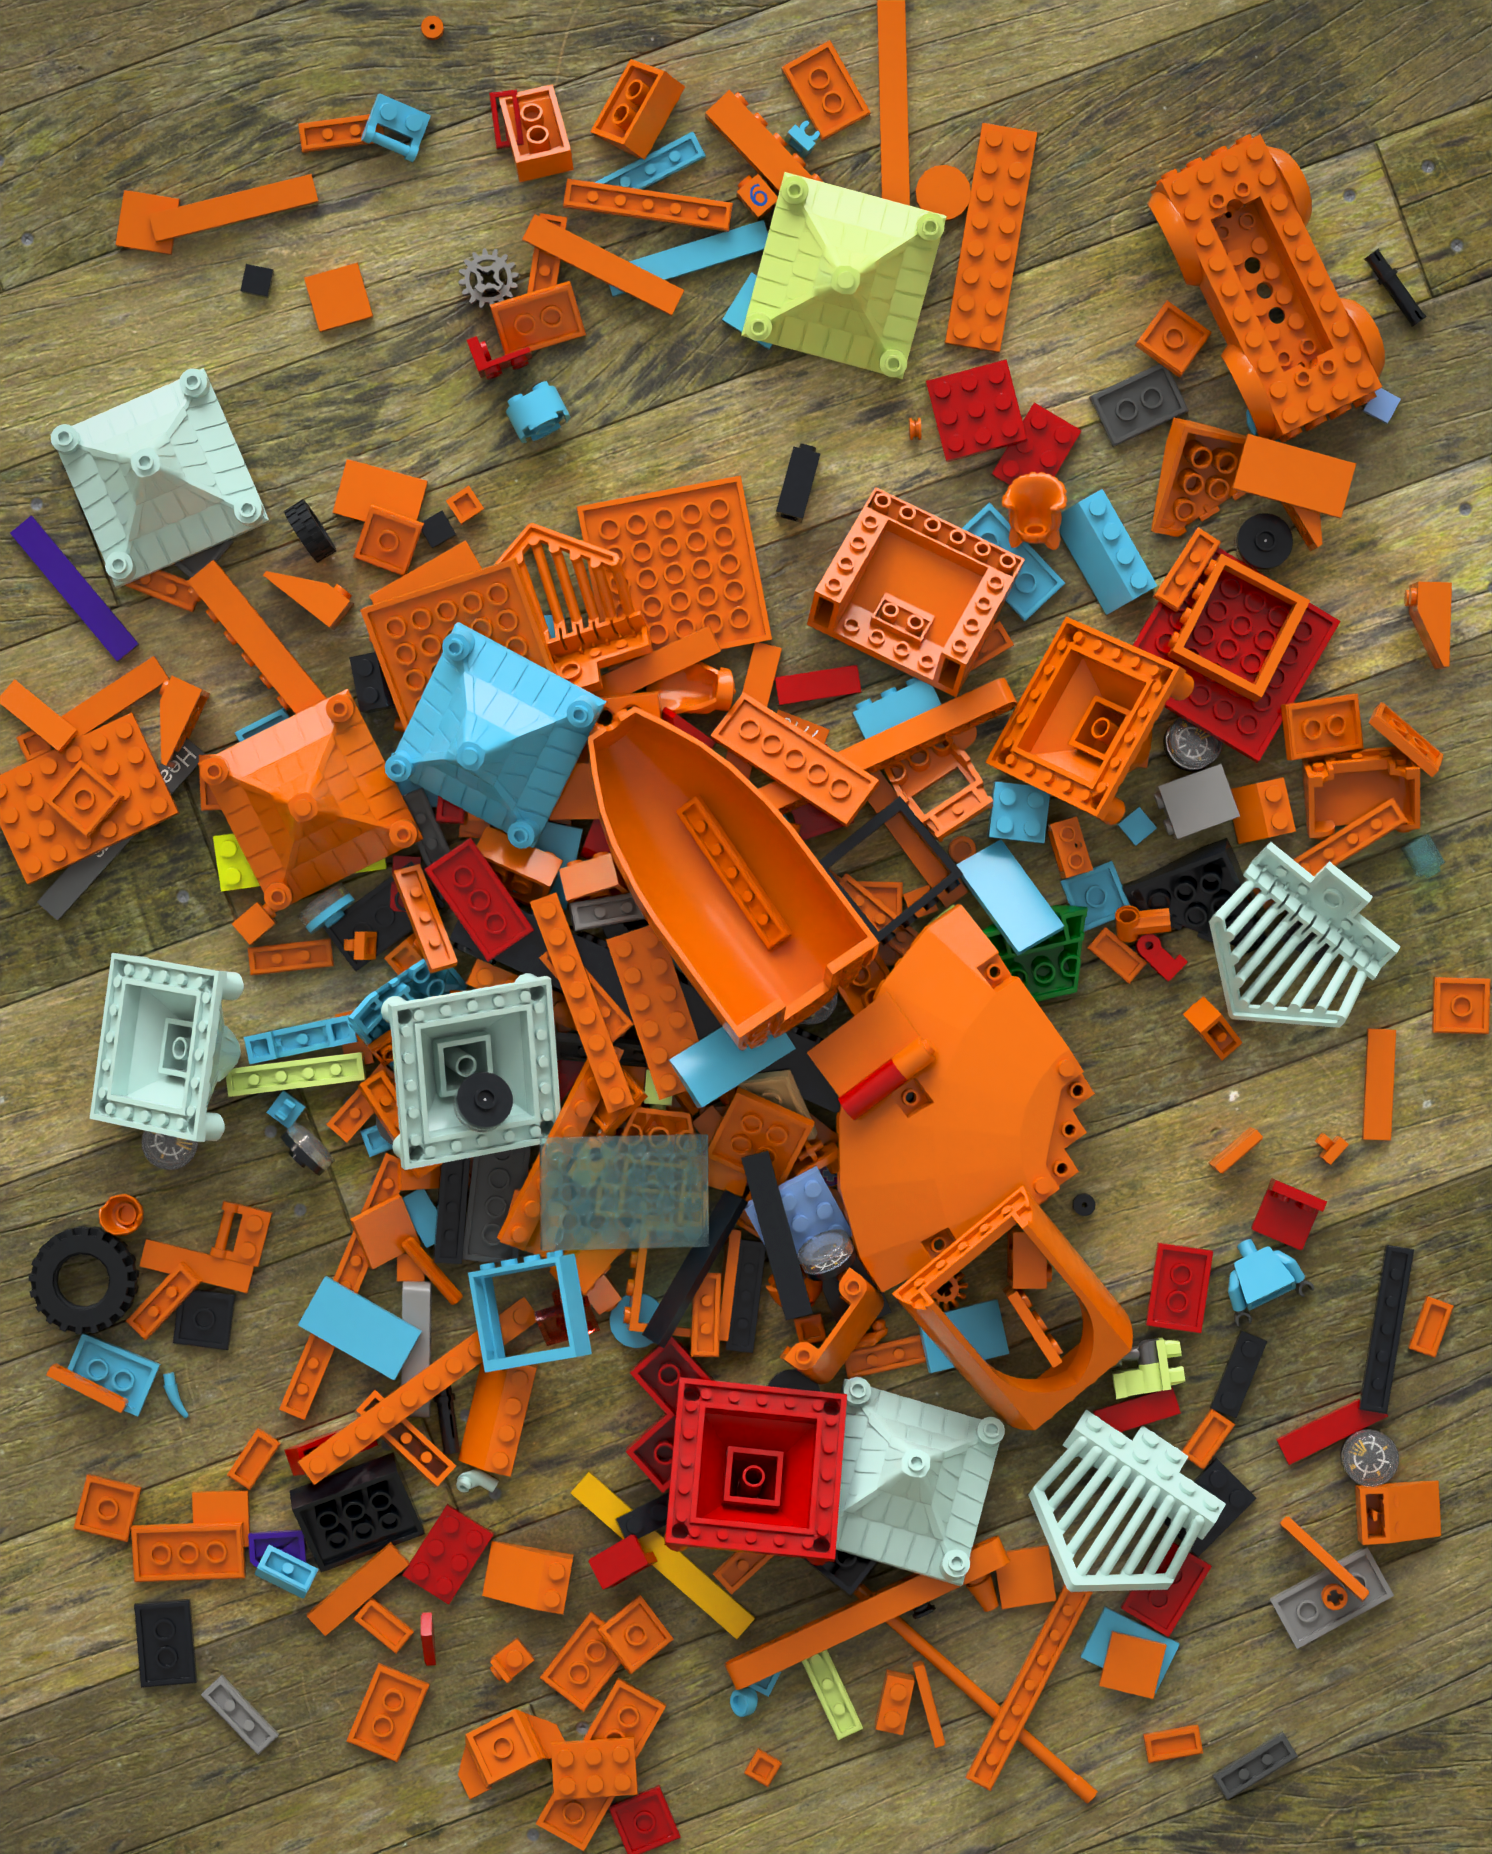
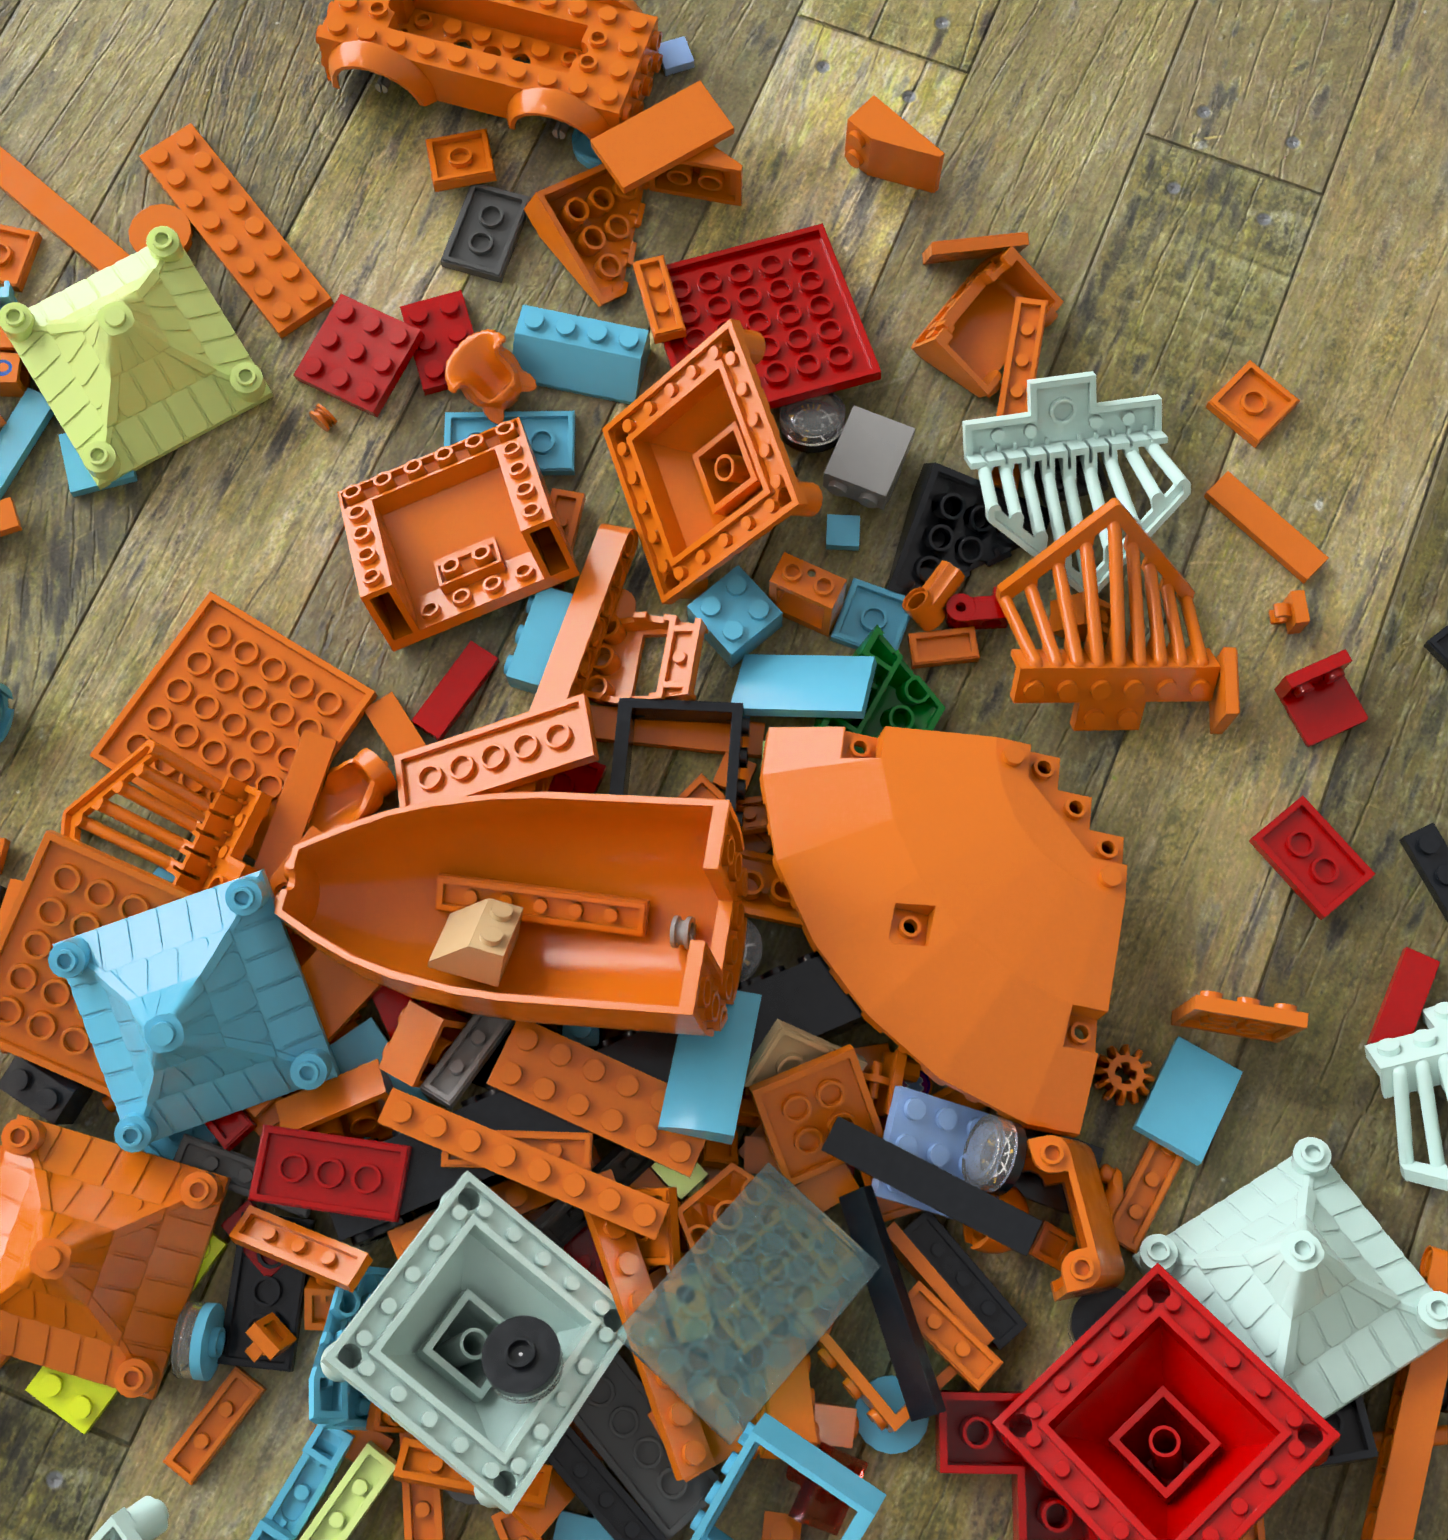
camera: 45 degrees left, 15 degrees down
(255, 922) = (145, 1428): orange brick -> none
(374, 1141) = (470, 1518): medium azure tile -> none
(679, 857) = (478, 941): none -> tan slope
(790, 971) = (682, 931): none -> bush
(798, 483) = (264, 546): black window -> none
(871, 1056) = (835, 927): orange door -> none
(961, 848) = (720, 691): orange tile -> none
(1025, 1262) = (1166, 963): orange brick -> none
(1090, 1204) = (1157, 869): black piece -> none
(1105, 1332) = (1298, 1105): orange panel -> none
(1152, 1368) = (1376, 949): yellowish green hips -> none
(1180, 1081) = (1116, 681): none -> orange plate
(1255, 690) = (773, 235): orange window -> none
(1262, 811) = (933, 410): orange slope -> none
(1262, 1277) = (1368, 774): medium azure torso -> none
(1263, 542) = (696, 226): black piece -> none
(1322, 726) = (899, 306): orange tile -> none
(1423, 856) = (1089, 323): clear light blue brick -> none

